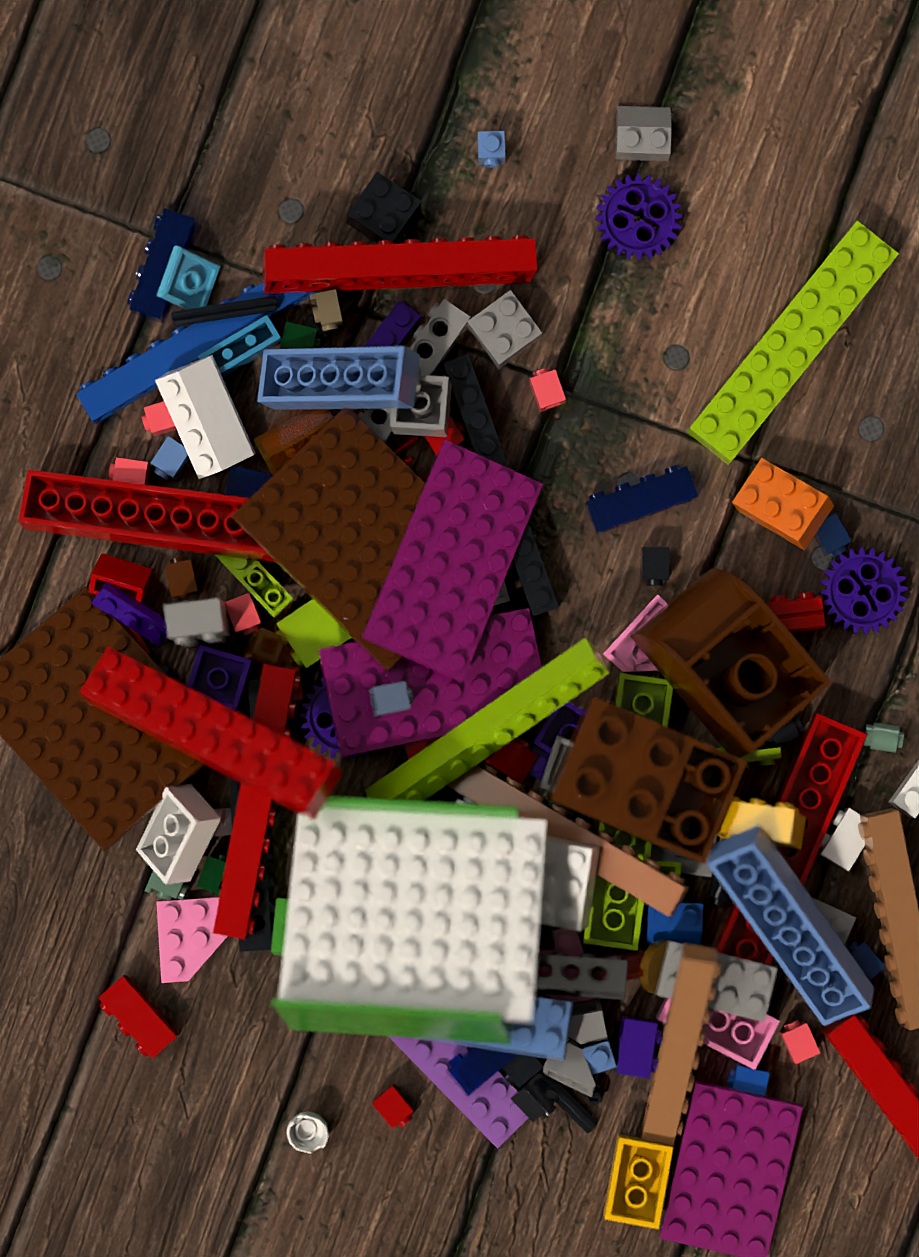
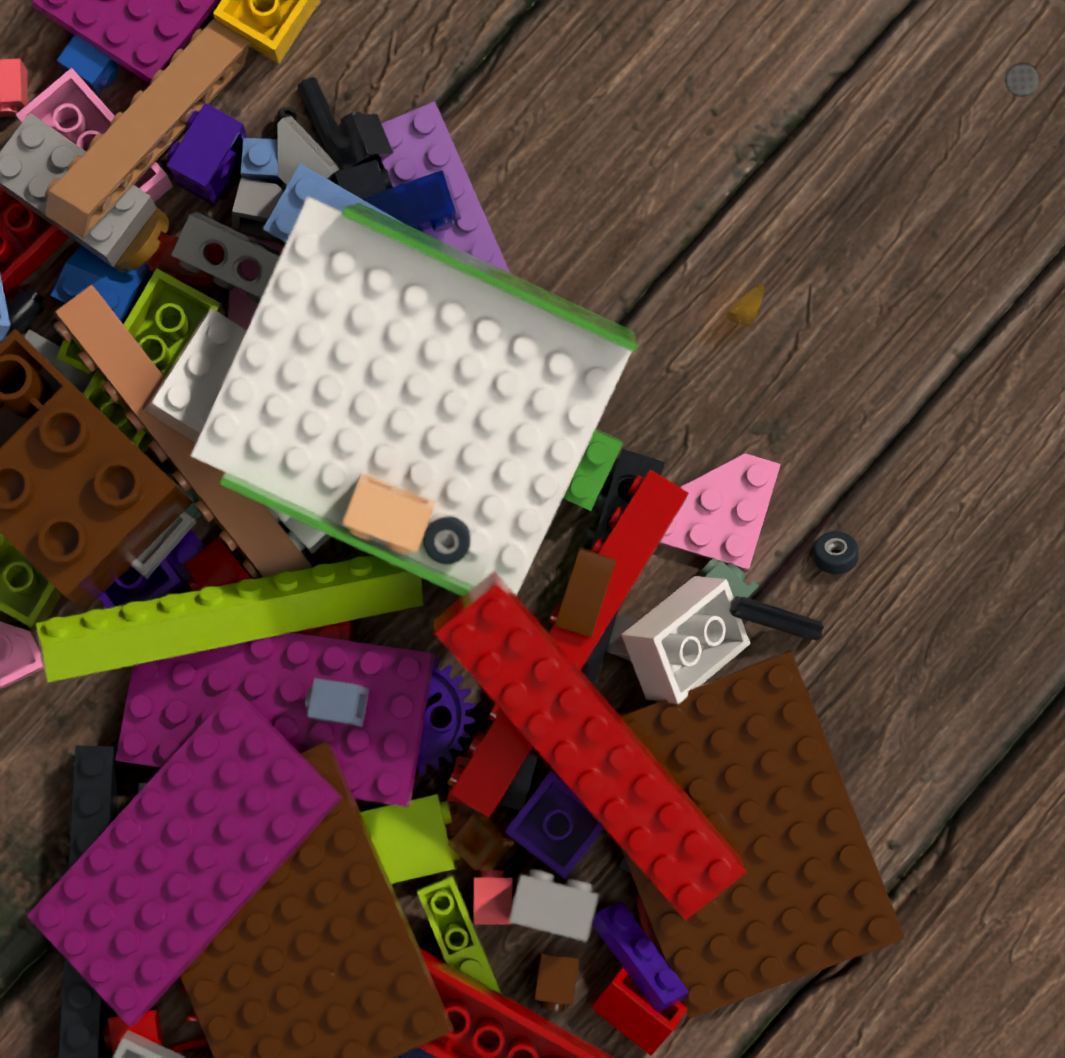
camera: 160 degrees left, 5 degrees down
(100, 928) = (836, 562): none -> black wheel
(124, 873) = (776, 618): none -> black axle
(137, 1017) = (826, 431): red brick -> none
(213, 873) = (659, 575): dark green brick -> none
(223, 1083) = (746, 309): none -> clear yellow slope
(255, 837) = (585, 592): none -> reddish brown slope
(307, 1132) = (663, 208): white hair -> none
(348, 823) = (447, 554): none -> black wheel
(393, 1107) = (544, 199): red brick -> none
(398, 831) = (388, 514): none -> light nougat brick

